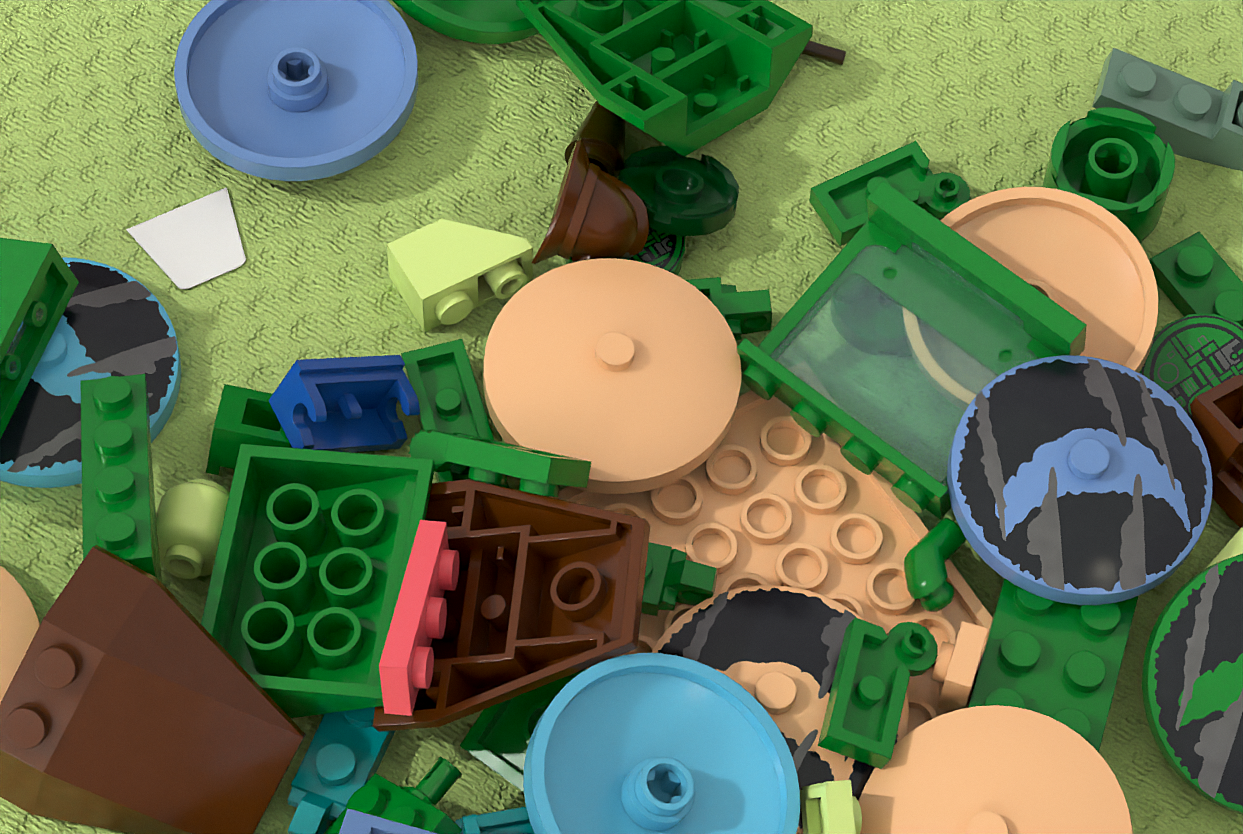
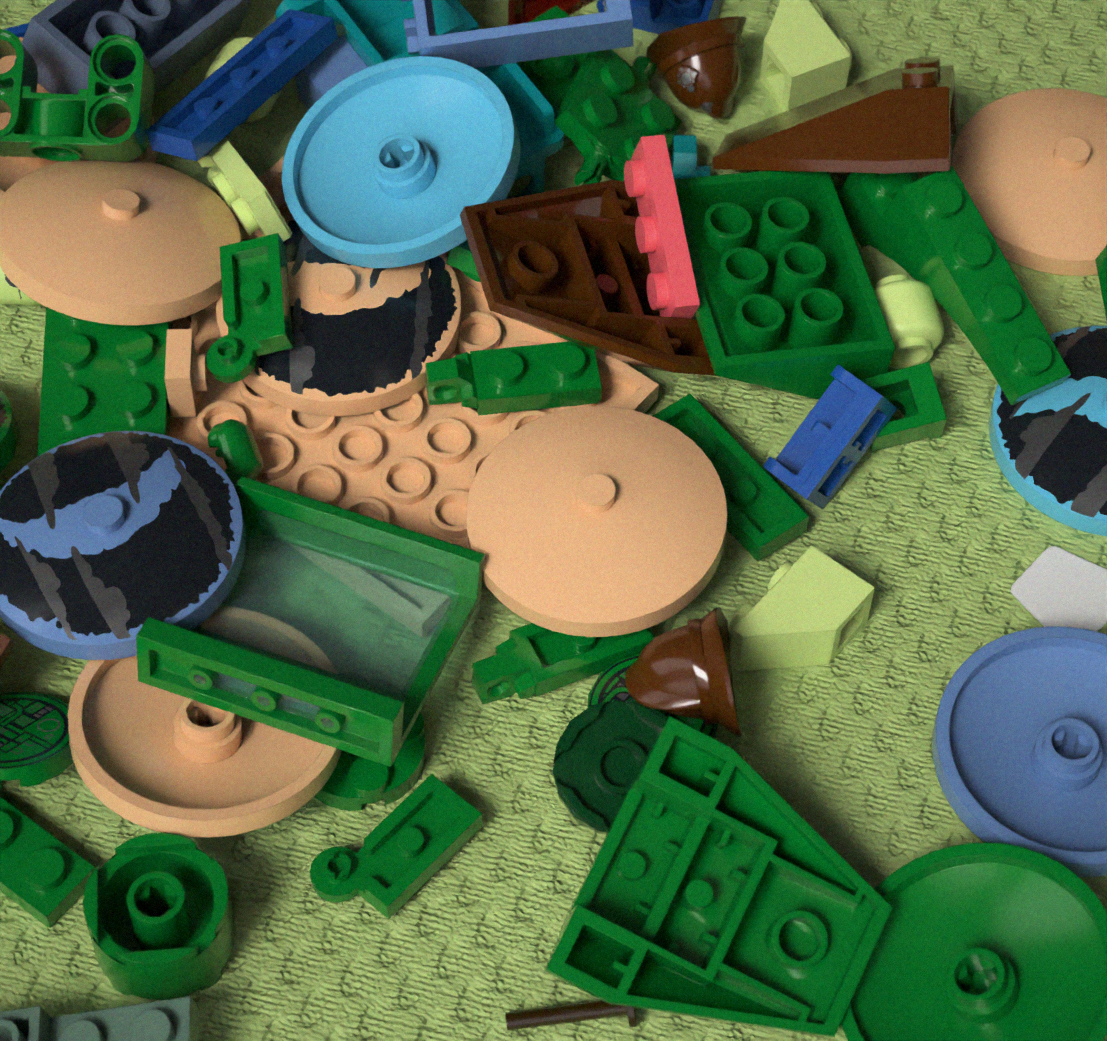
camera: 160 degrees right, 5 degrees down
(495, 460) = (653, 382): green hinge -> none

